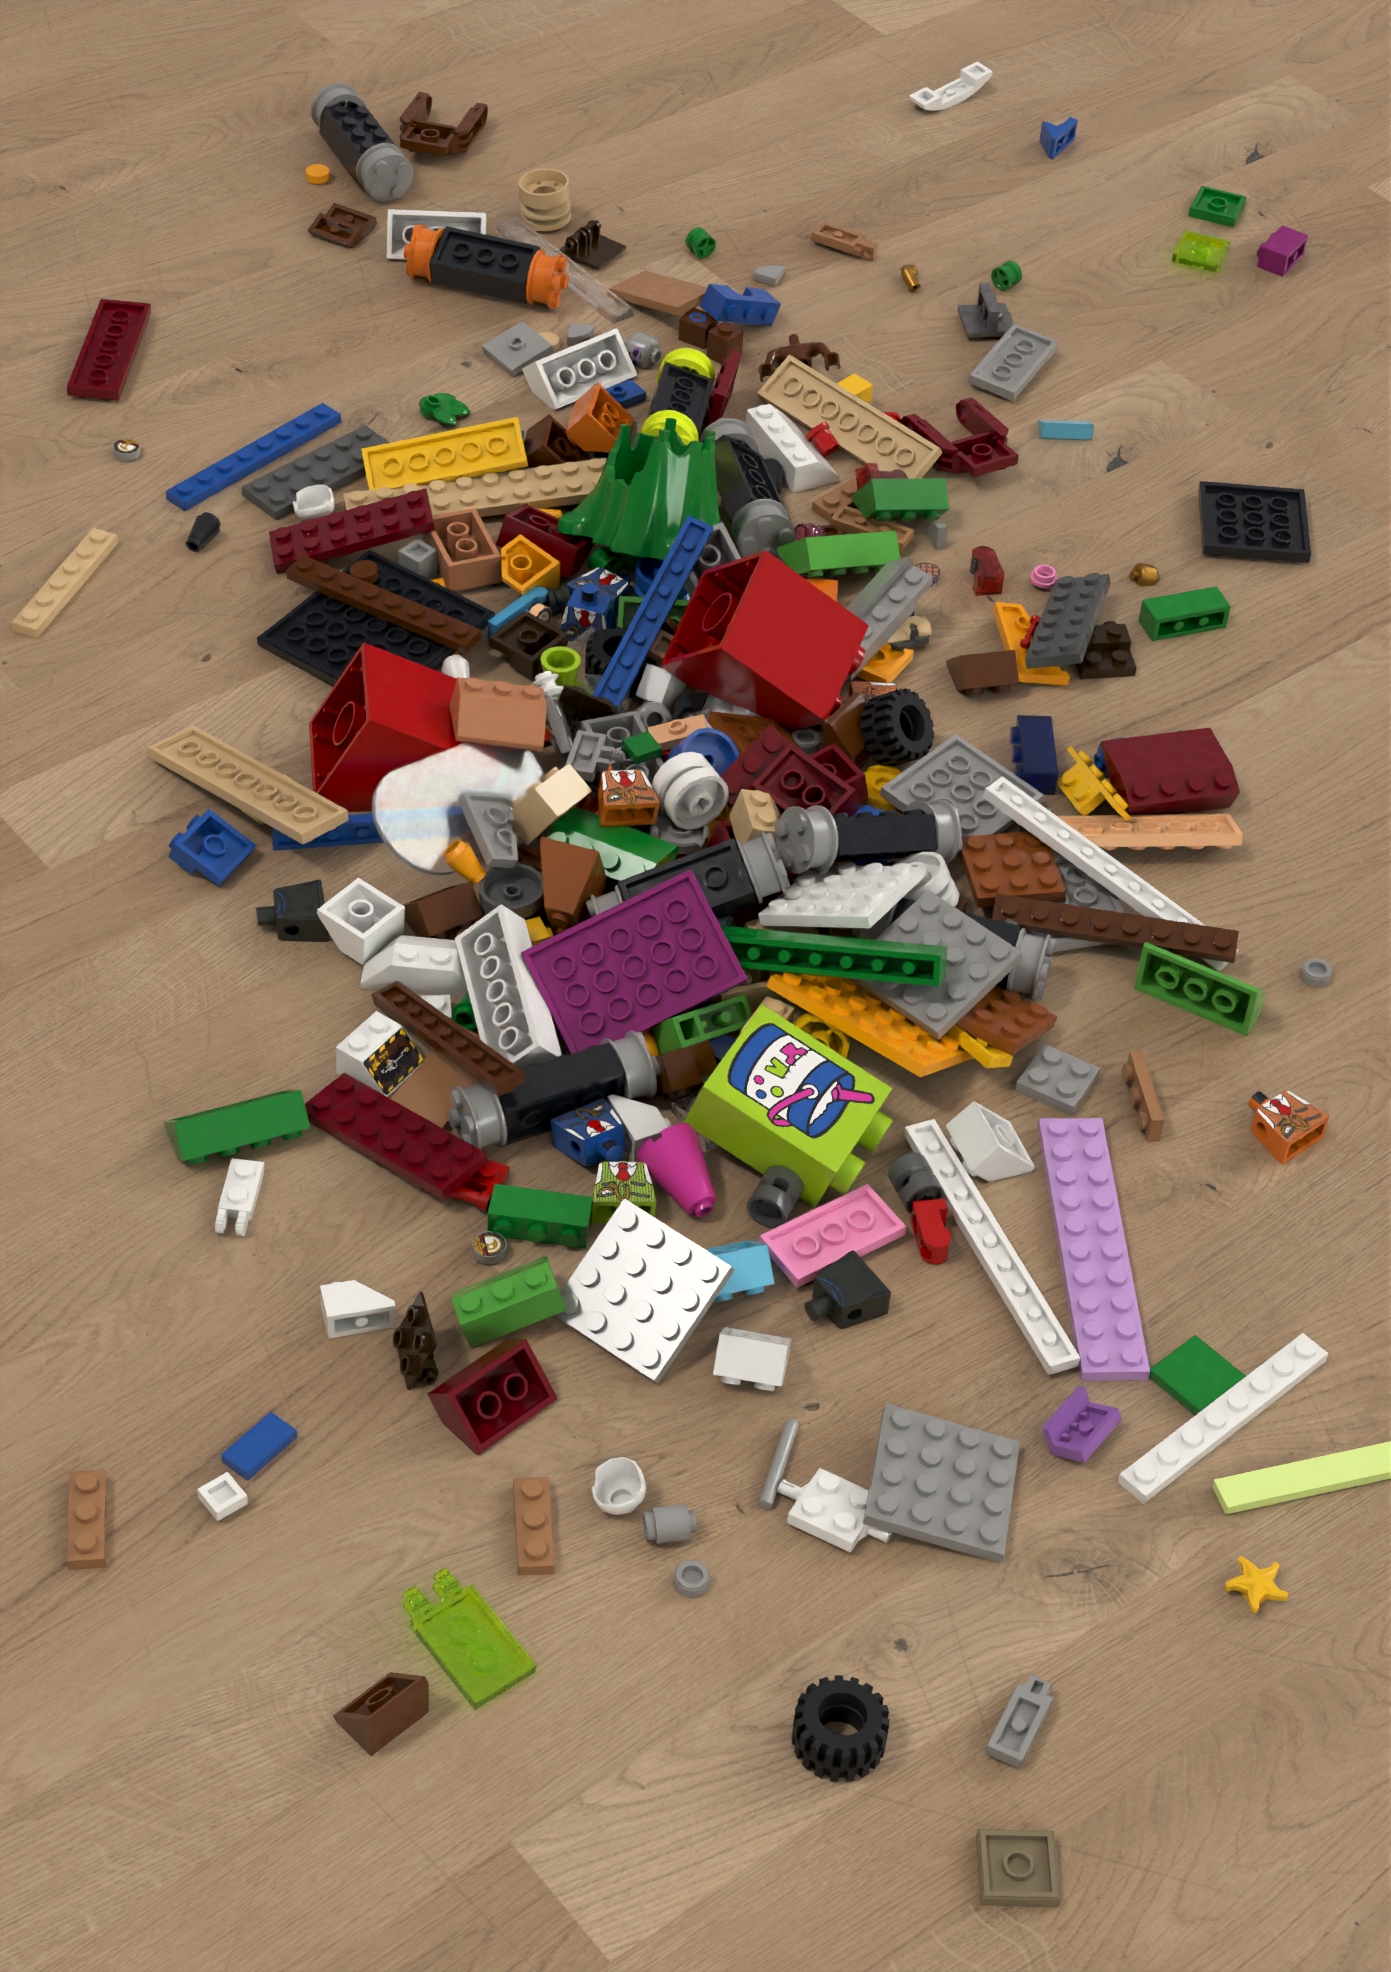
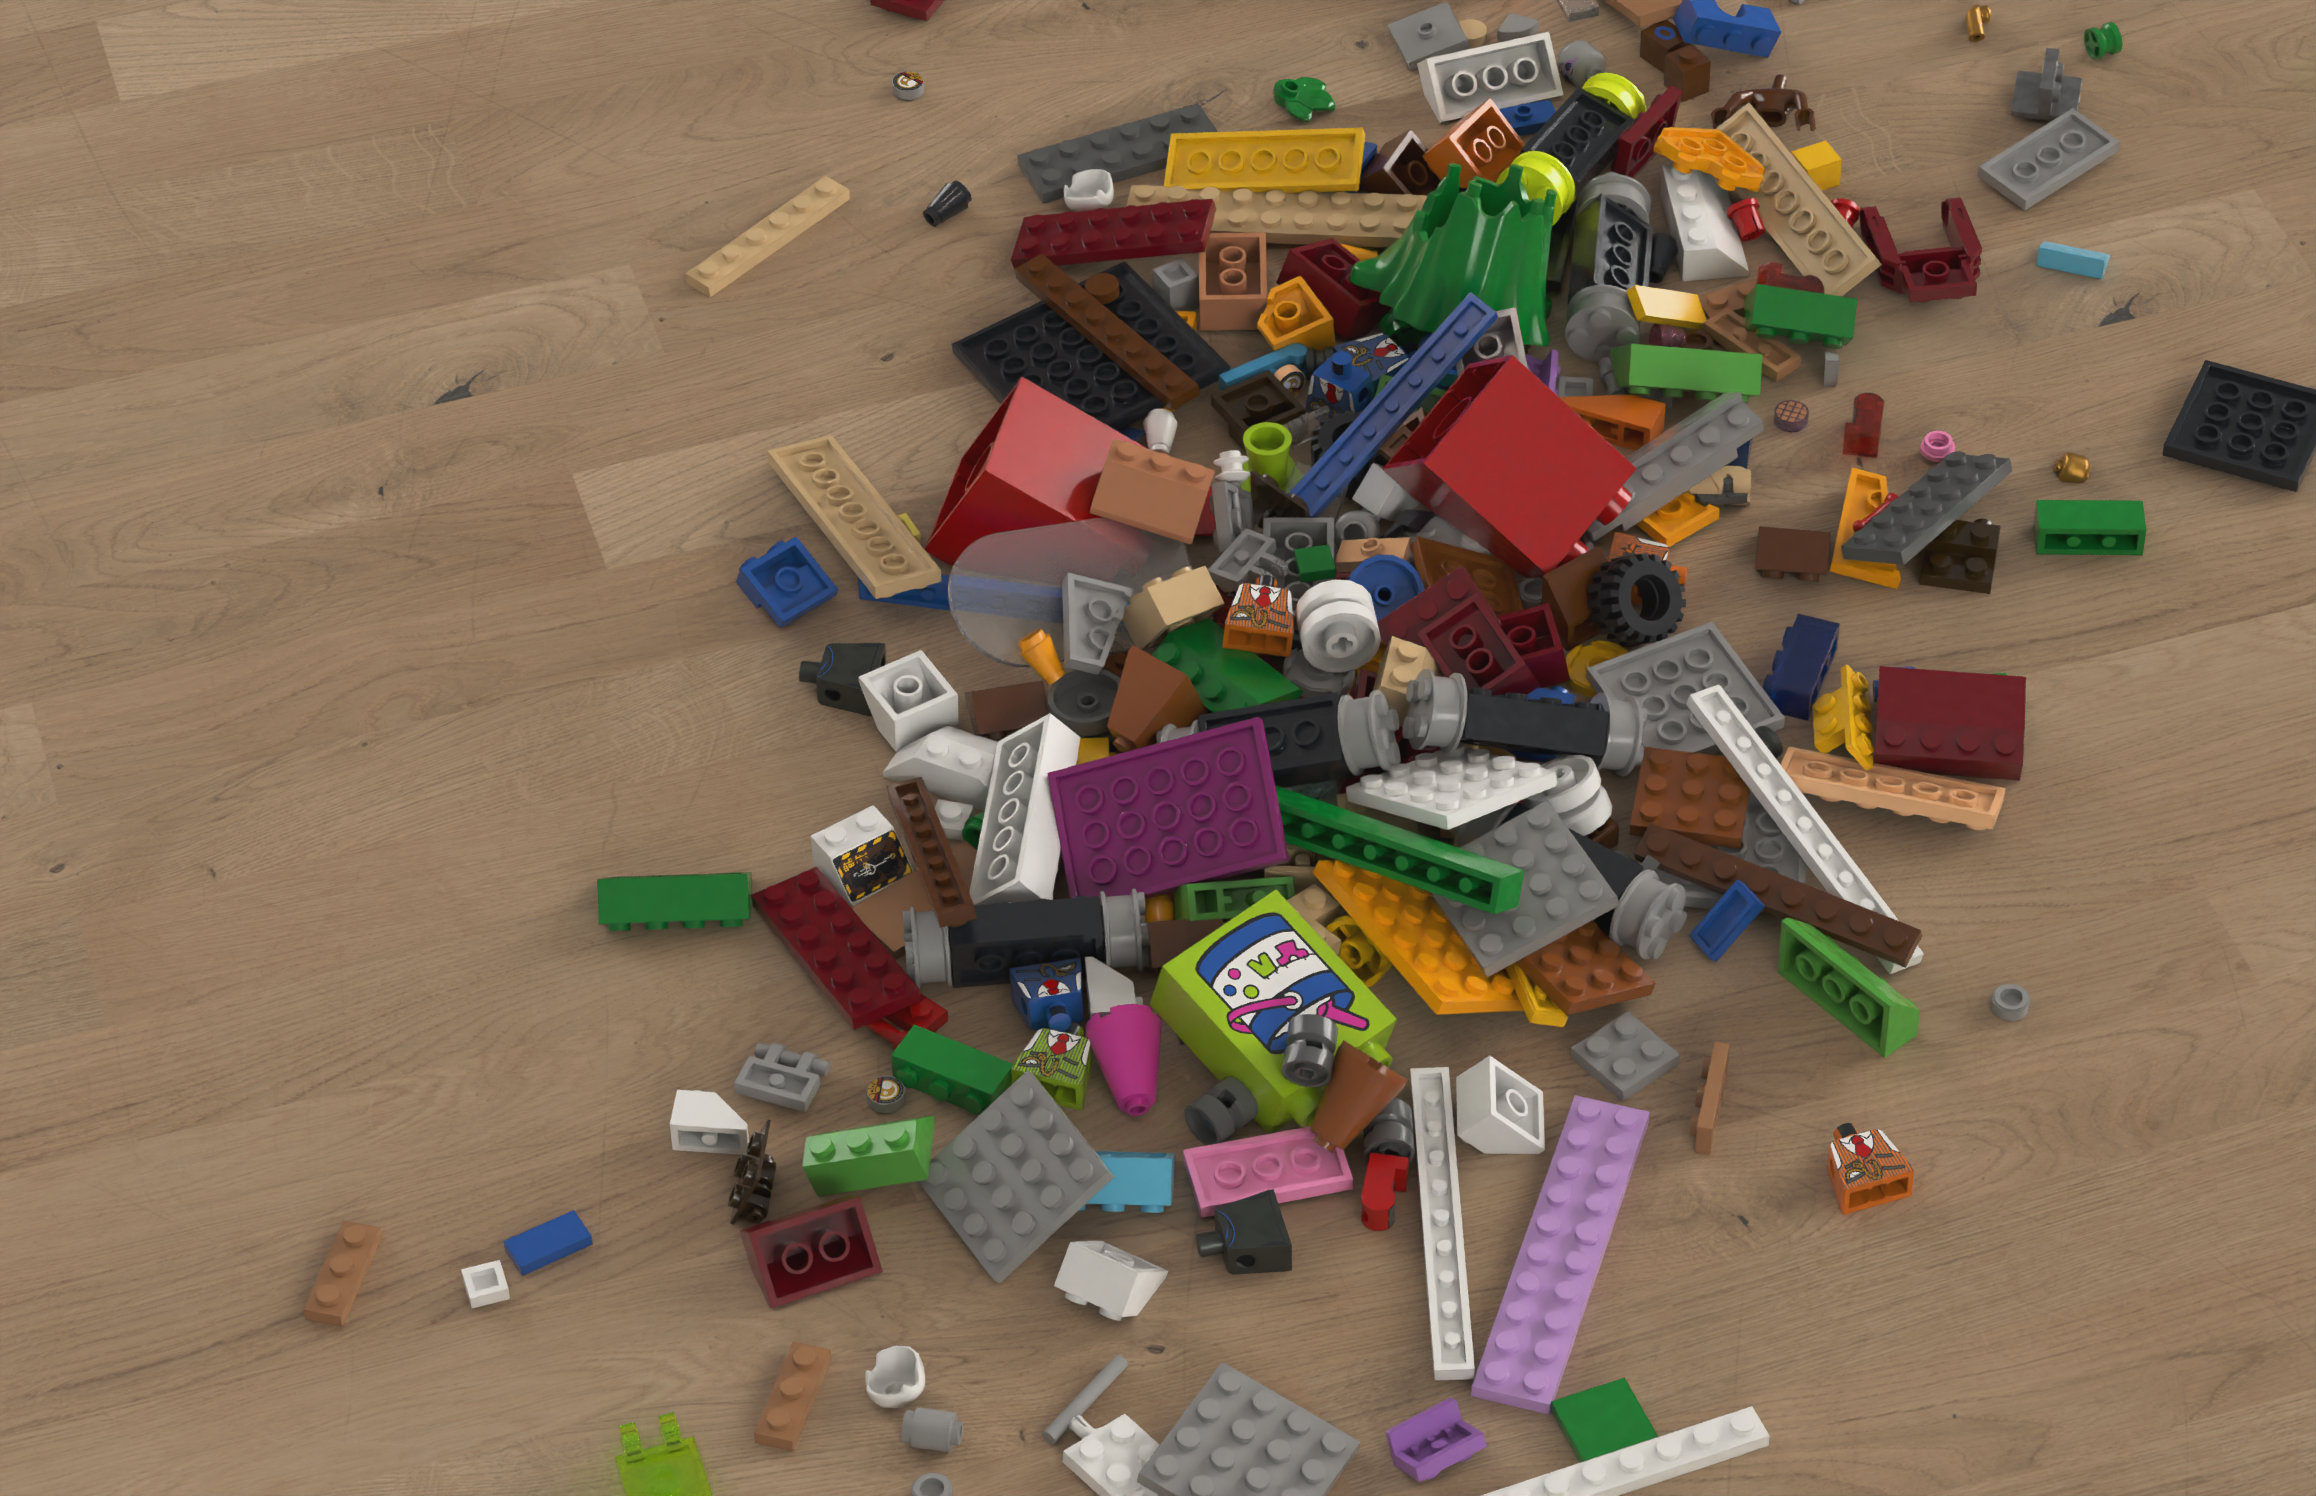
camera: 25 degrees right, 0 degrees up
(239, 1194) = (646, 975): white hinge -> none
(253, 457) = (1051, 119): blue plate -> none
(396, 1253) = (781, 1084): none -> light grey plate
(777, 394) = (1711, 153): none -> light orange plate
(804, 510) = (1666, 307): none -> yellow tile
(847, 1128) = (1309, 1050): none -> dark grey wheel
(888, 1157) = (1353, 1097): none -> dark orange cone
(1086, 956) = (1726, 920): none -> blue tile

